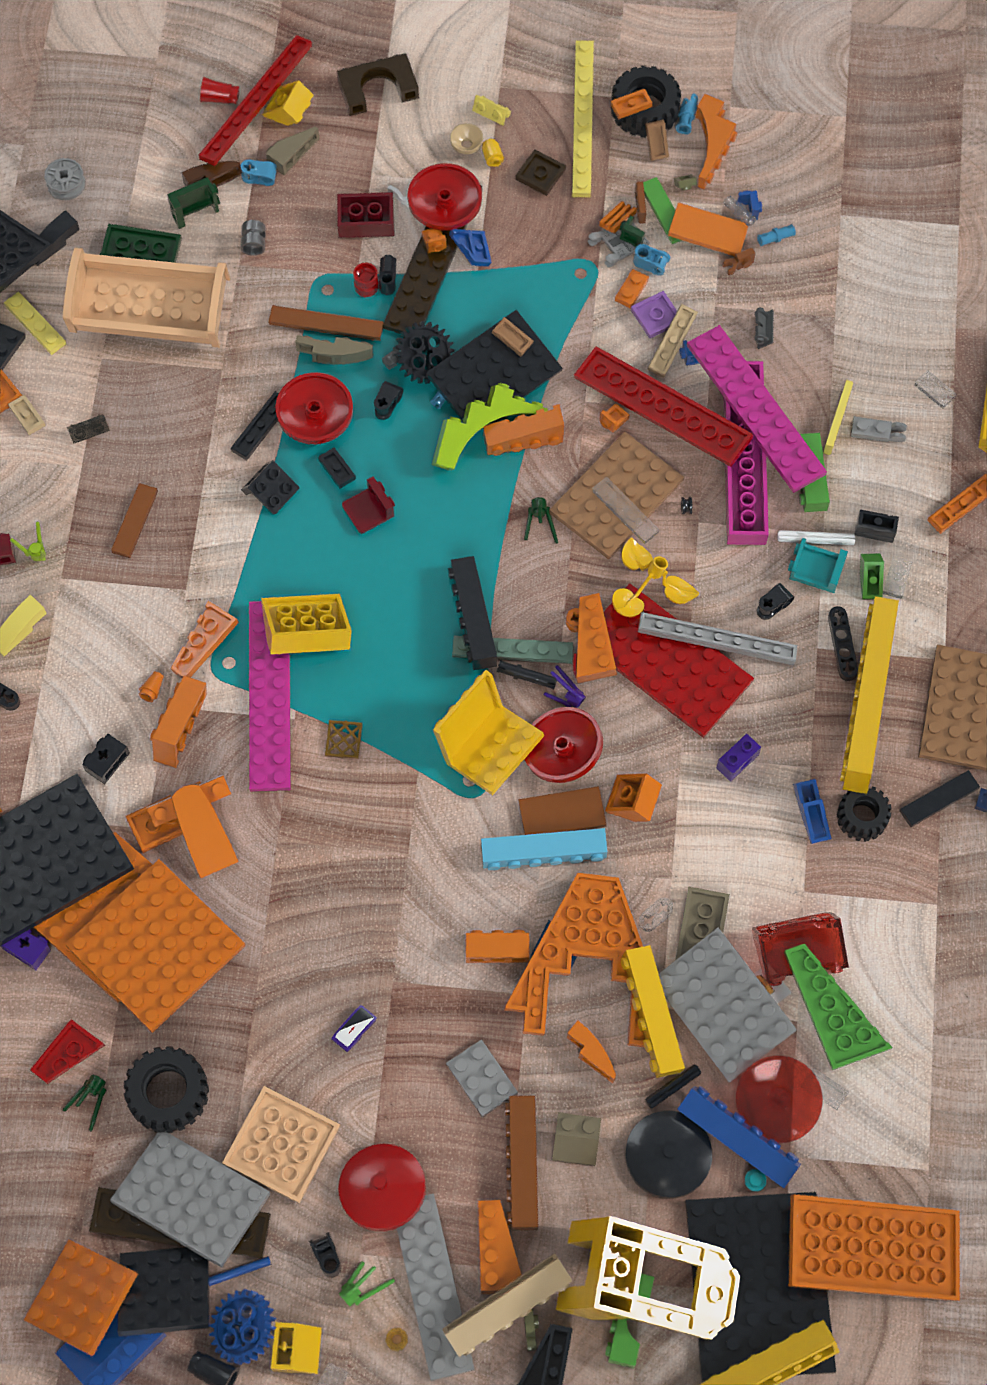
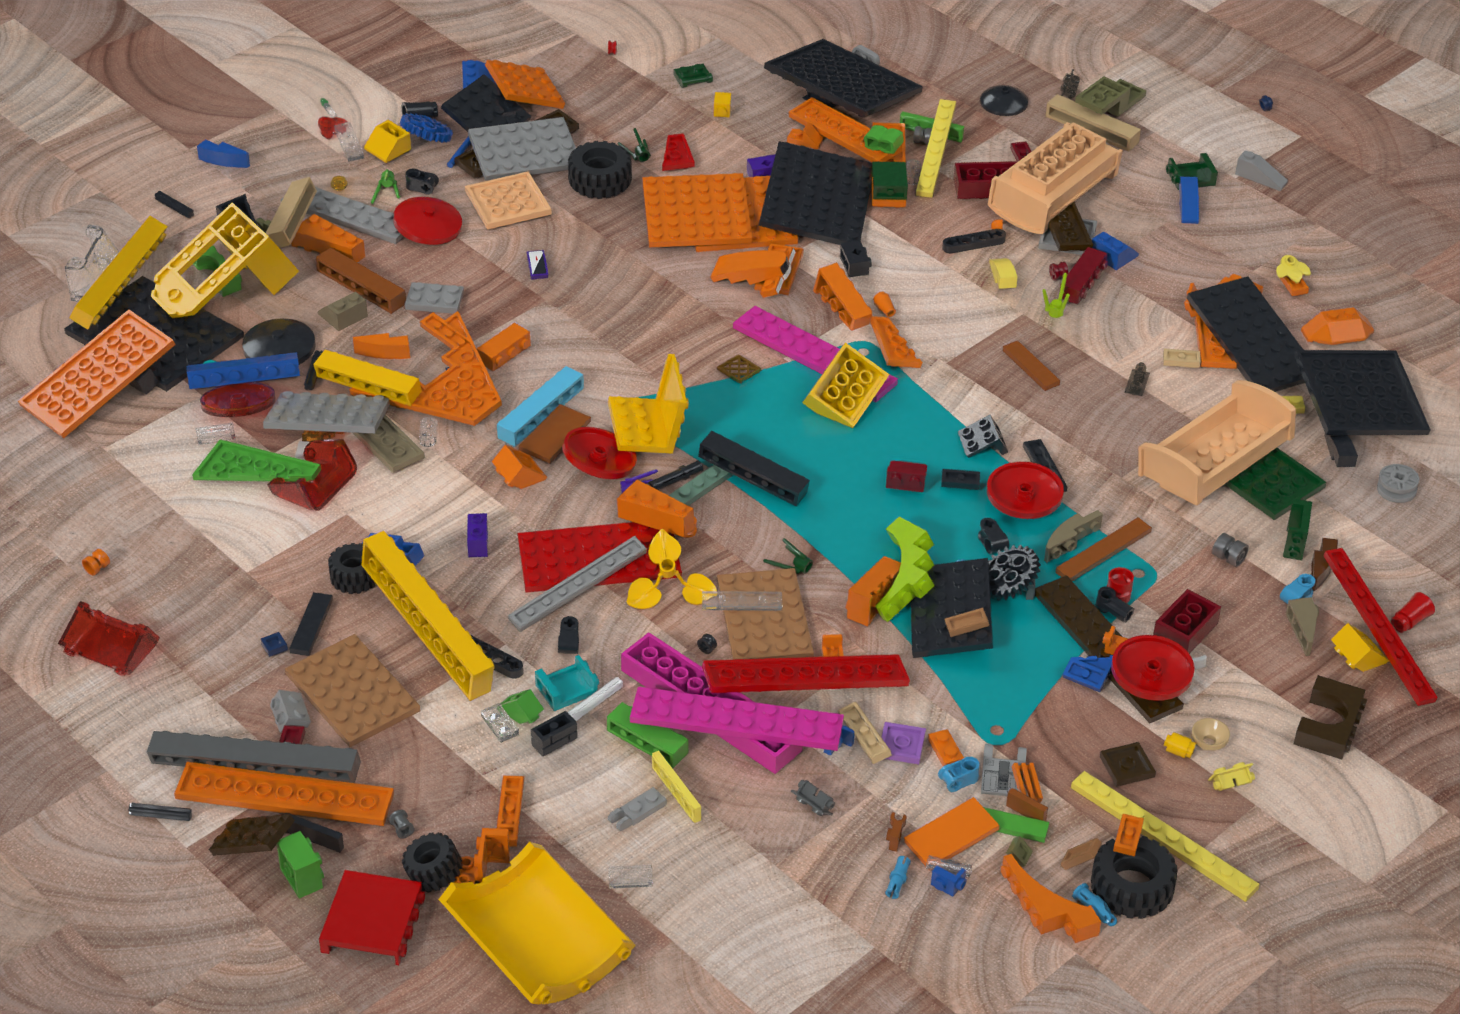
camera: 130 degrees right, 25 degrees down
(630, 233) = (998, 771): dark green bracket -> none

